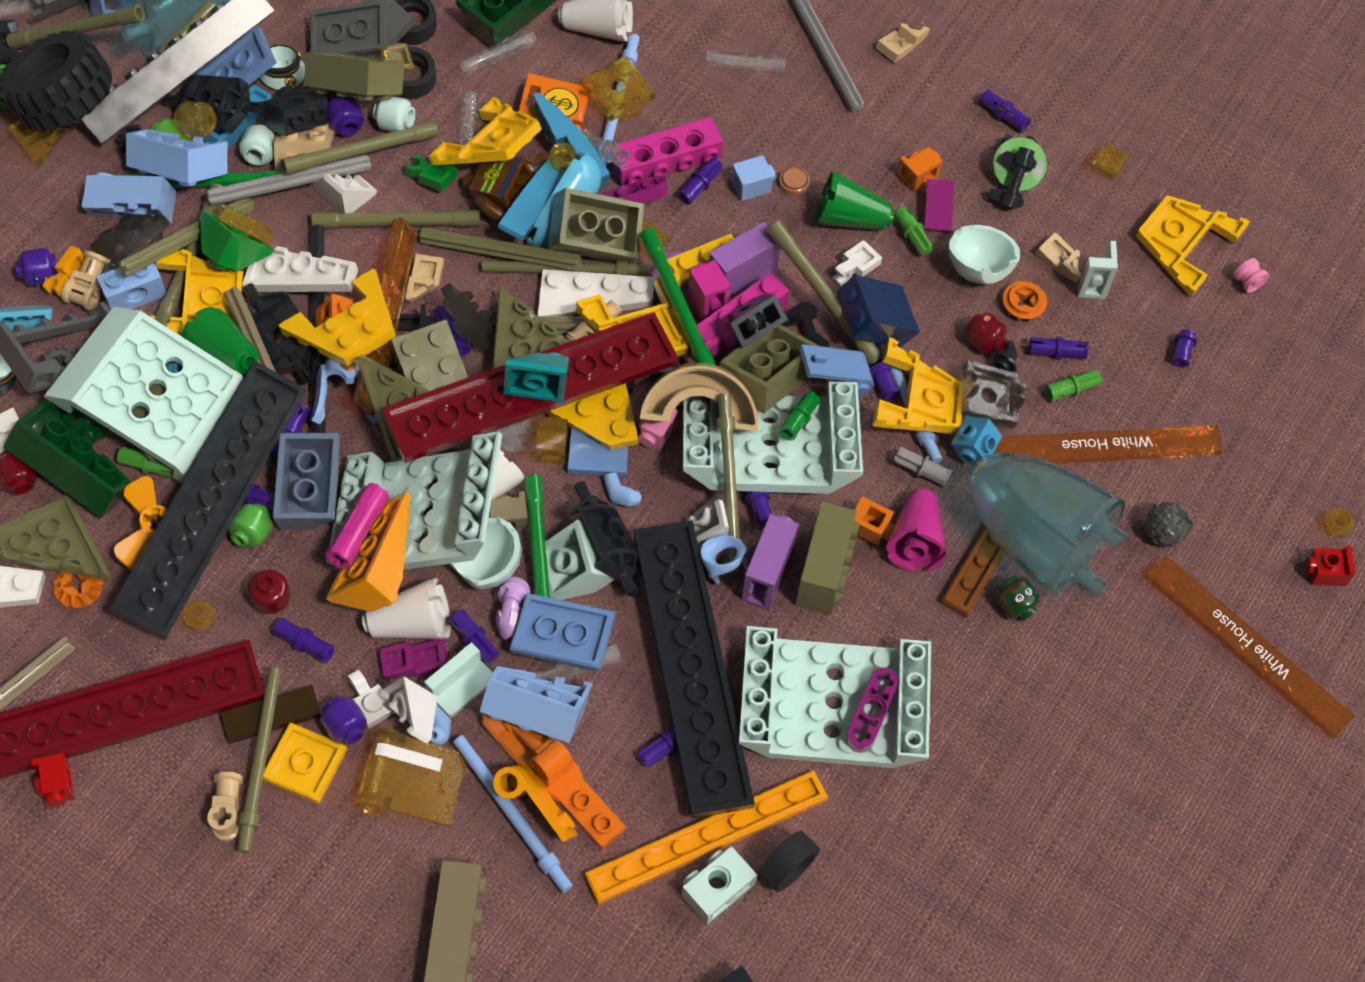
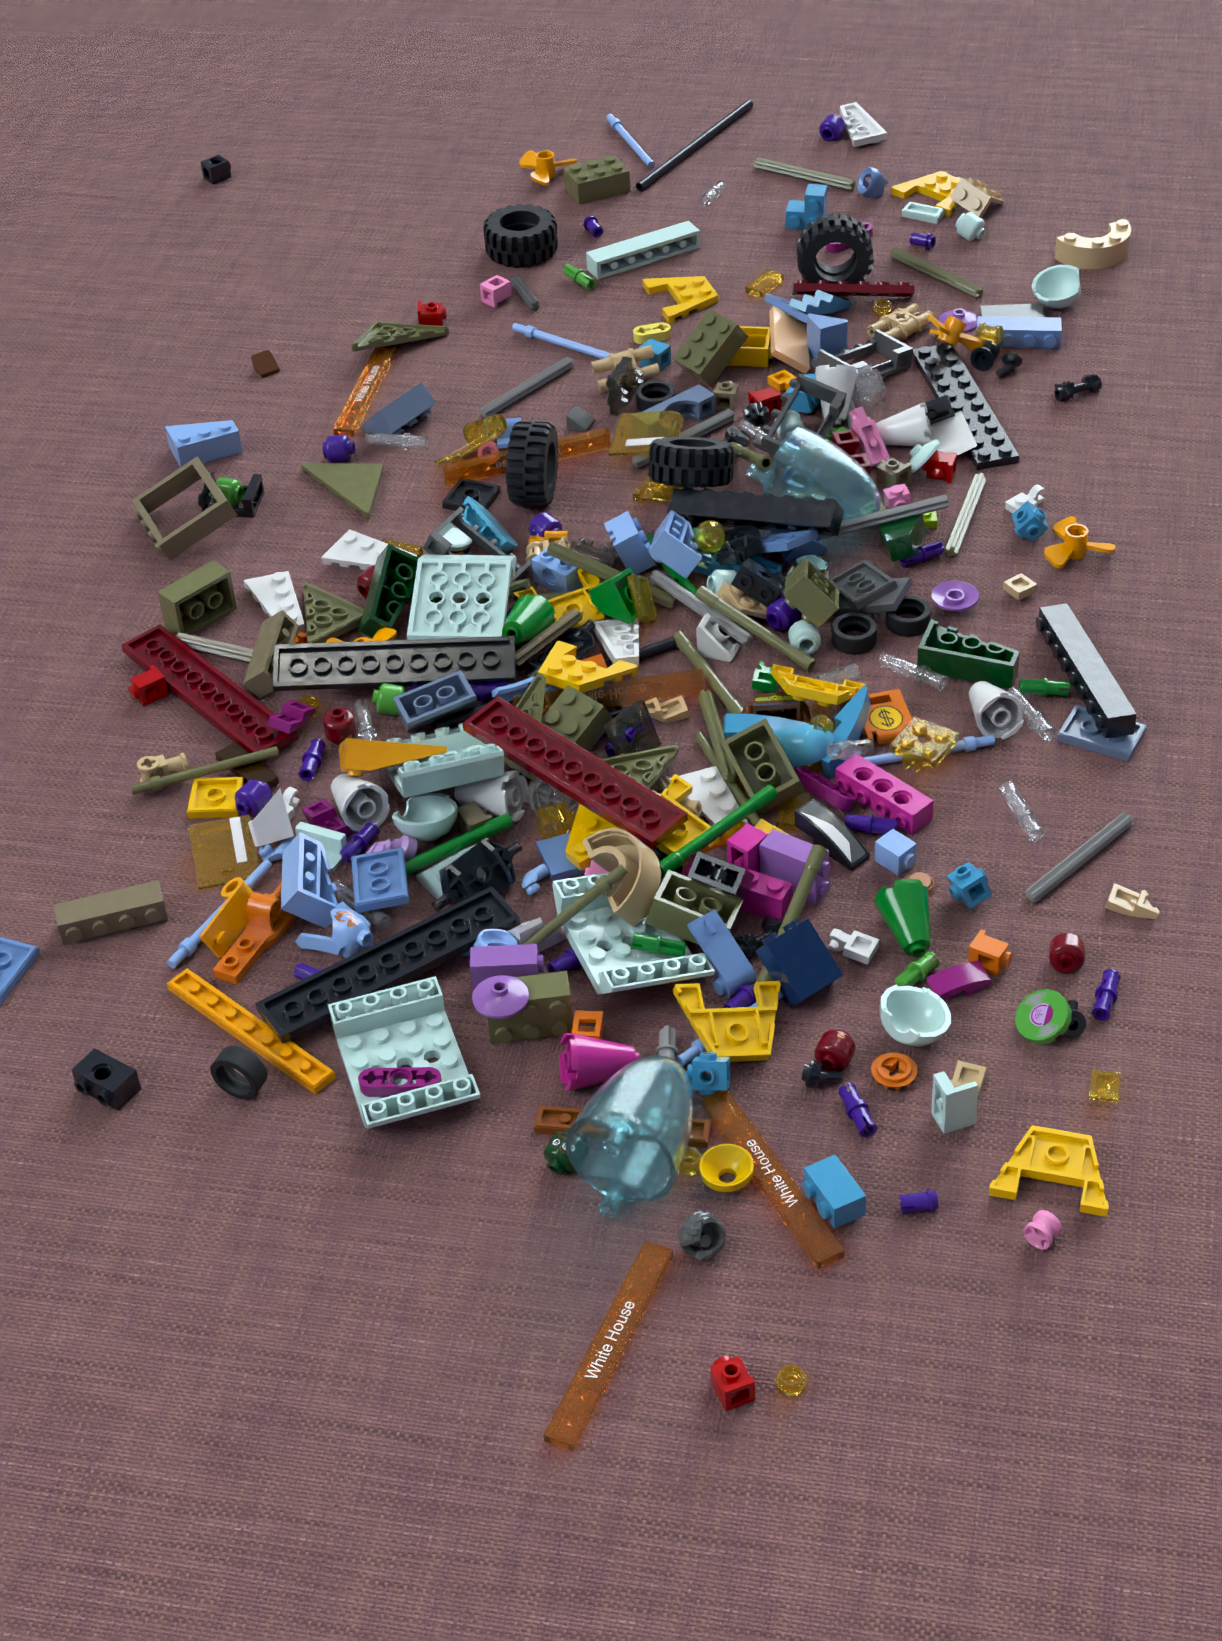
camera: 75 degrees right, 20 degrees down
(89, 623) = (273, 631): none -> dark tan brick
(223, 636) = (292, 716): none -> magenta slope
(291, 569) = (364, 721): none -> clear pin
(349, 540) = (424, 736): dark pink axle -> none
(398, 52) = (852, 614): clear yellow tile -> none
(537, 376) = (571, 757): teal slope -> none
(628, 683) = (349, 934): none -> light blue piece
(700, 218) = (831, 834): none -> slope
(709, 901) = (201, 1041): light aqua brick -> none
(828, 583) = (500, 997): none -> medium lavender dish
(832, 142) = (969, 885): none -> dark azure brick
(948, 113) = (1066, 953): none -> dark red head
(1003, 386) = (773, 1053): clear smoke piece -> none
(1022, 163) = (1037, 1009): black piece -> none
(1072, 385) = (821, 1131): bright green axle -> none
(1101, 464) = (726, 1159): none -> yellow piece
(1157, 403) = (834, 1191): none -> dark azure brick

